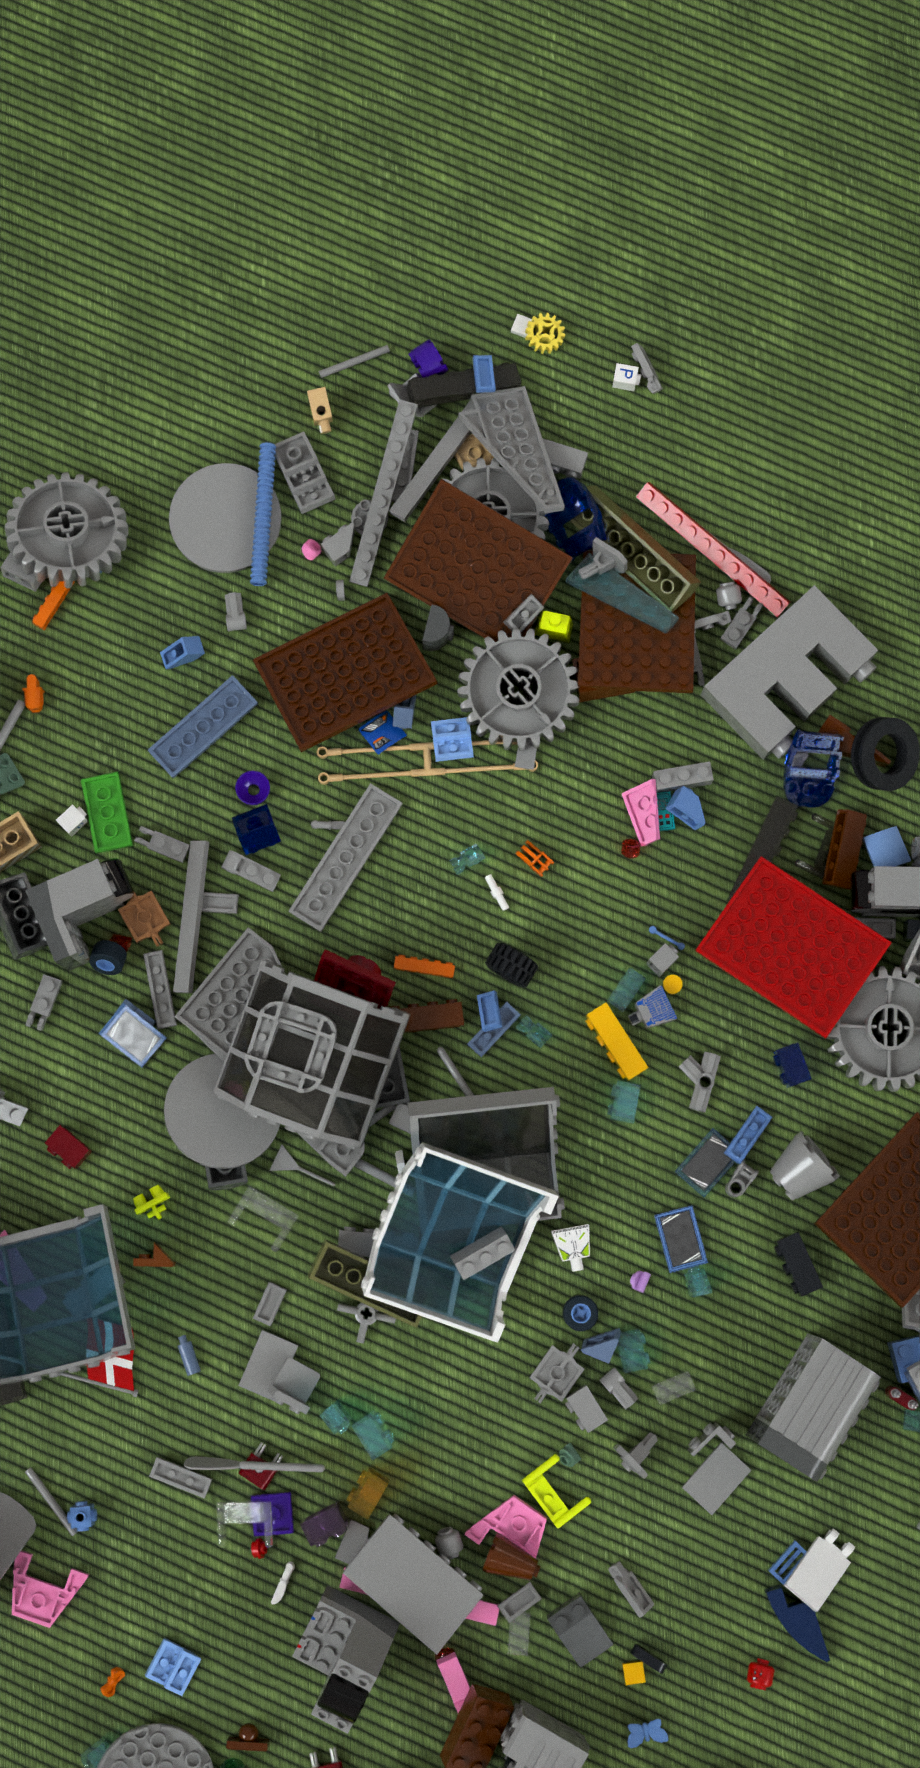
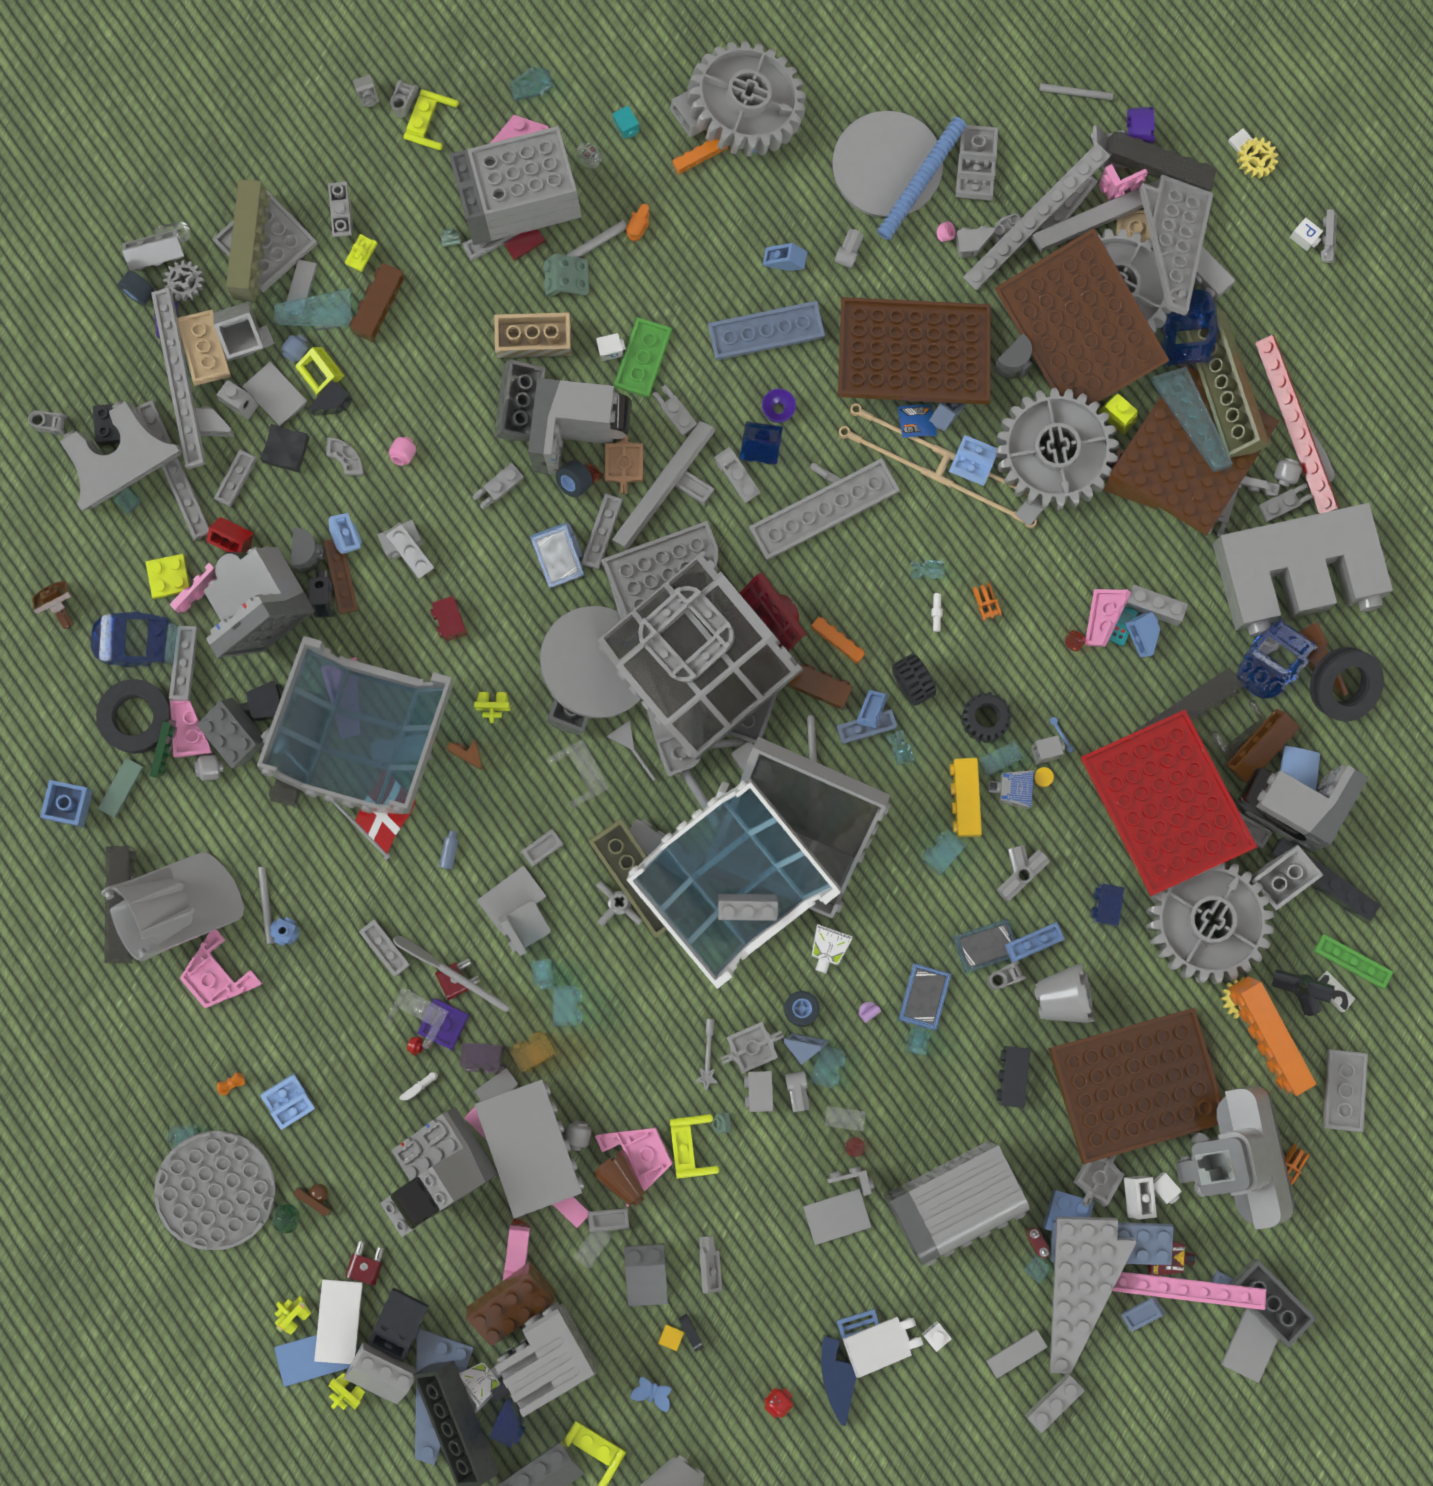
camera: 30 degrees right, 0 degrees up
(319, 403) = (1025, 111): tan torso -> none
(340, 590) = (951, 280): light grey tile -> none
(437, 429) = (1114, 187): none -> bright pink bracket
(483, 373) = (1183, 162): medium blue tile -> none
(524, 613) = (1099, 386): light grey slope -> none
(531, 1421) = (706, 1076): none -> light grey piece
(604, 559) = (1196, 378): light grey piece -> none
(604, 949) = (989, 701): none -> black tyre
(637, 1454) = (774, 1157): light grey piece -> none
(696, 1407) = (854, 1147): none -> clear red tile
(862, 1532) = (936, 1336): none -> white brick

